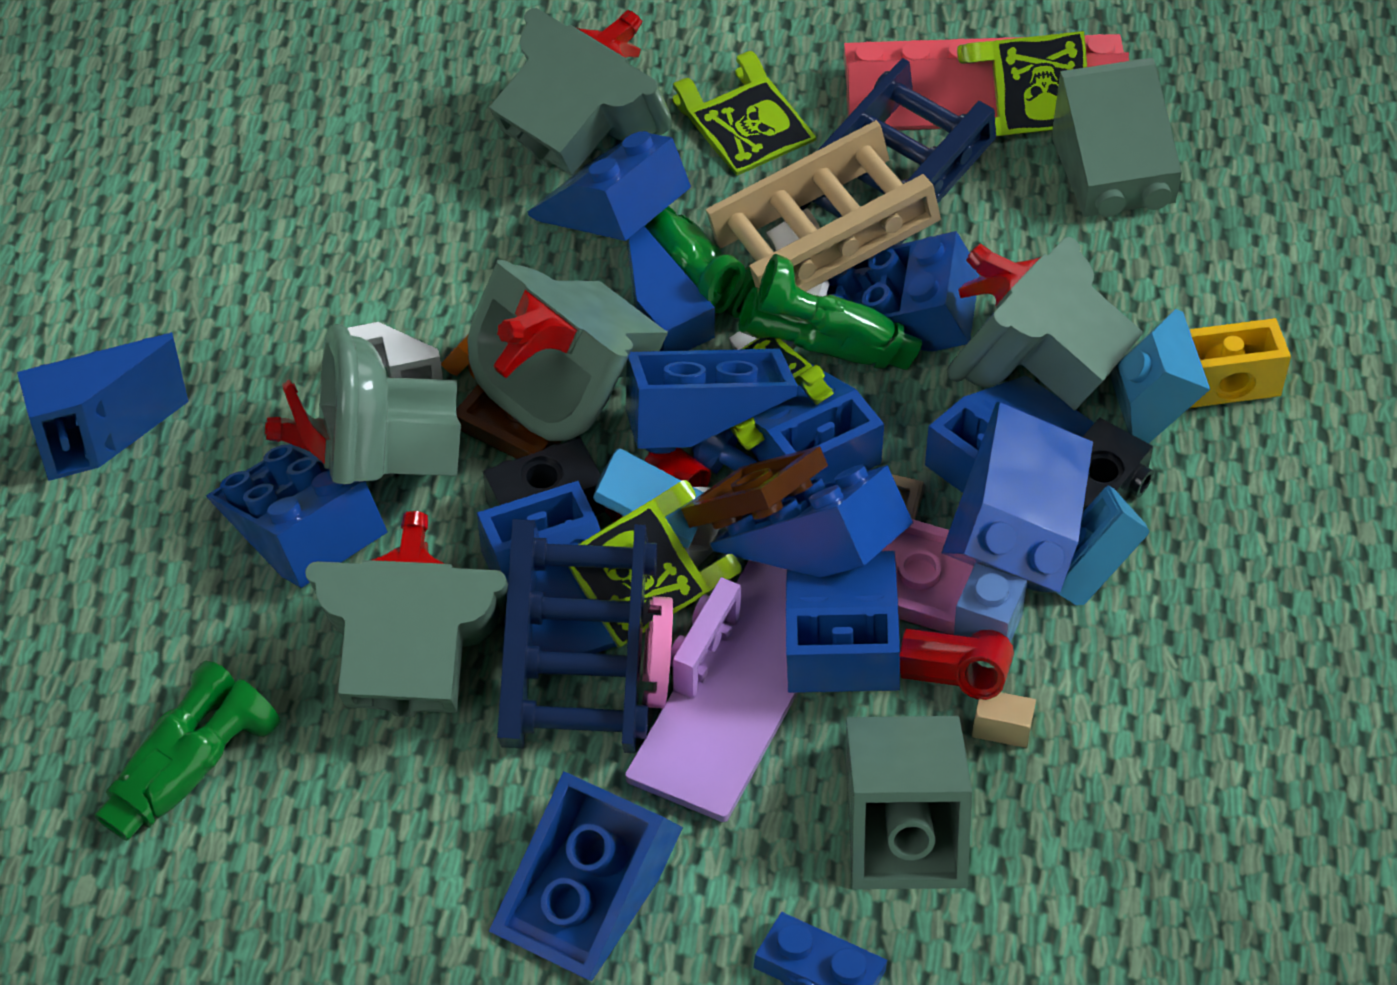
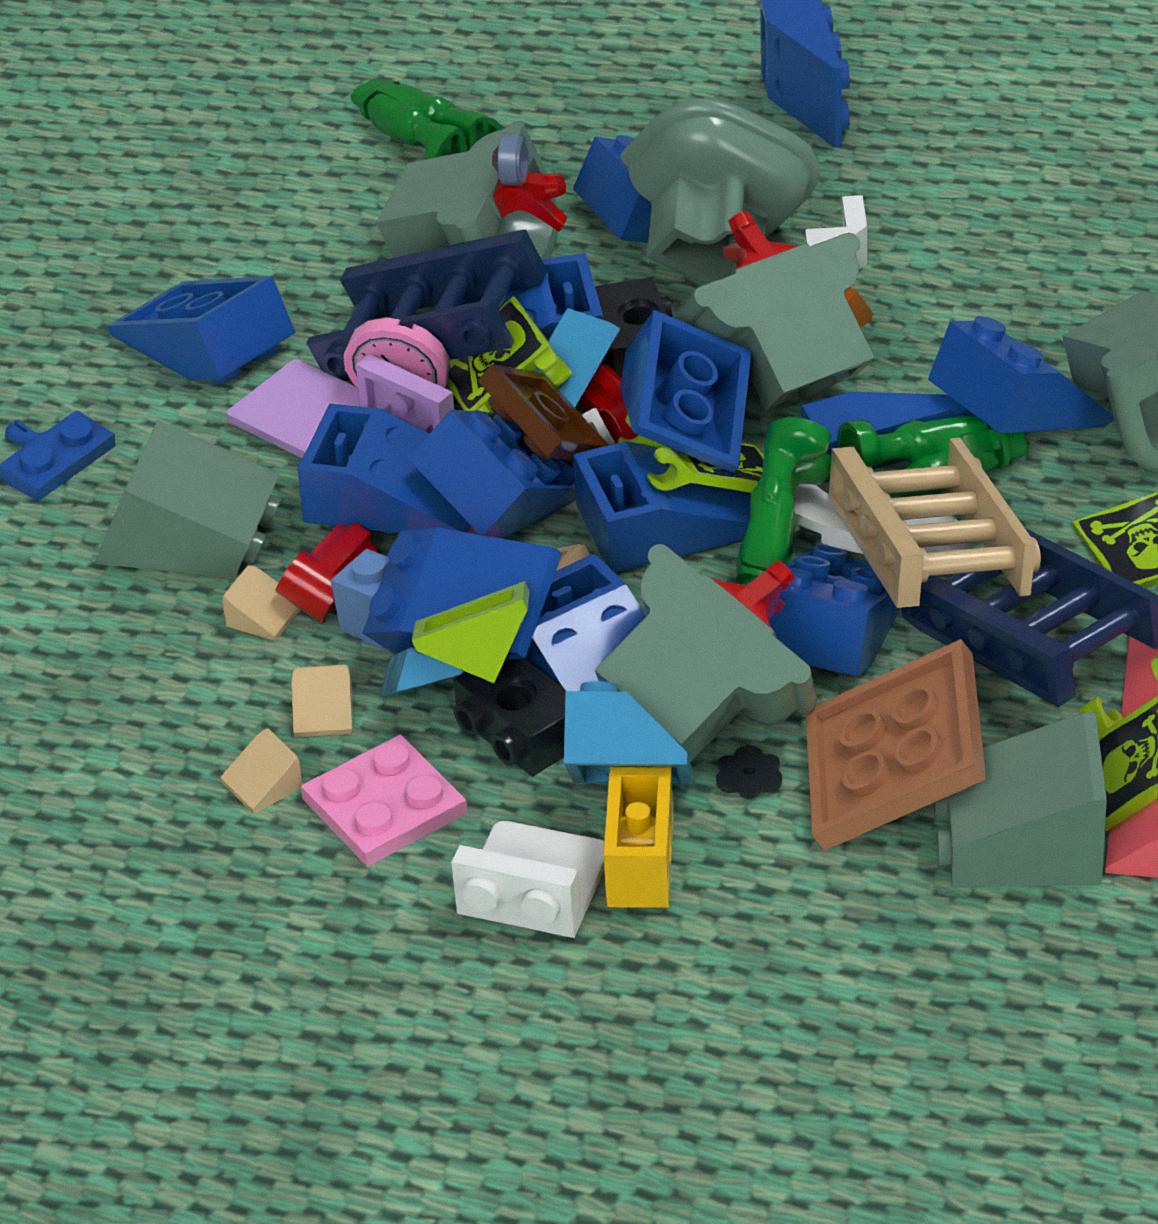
camera: 105 degrees right, 10 degrees down
(415, 535) = (511, 159): none -> sand blue tile
(1085, 193) = (894, 745): none -> nougat plate
(1086, 460) = (475, 633): none -> lime slope
(1119, 635) = (322, 701): none -> tan slope
(1218, 566) = (384, 800): none -> bright pink plate
(1222, 658) = (263, 772): none -> tan slope
(1282, 441) = (529, 878): none -> white bracket

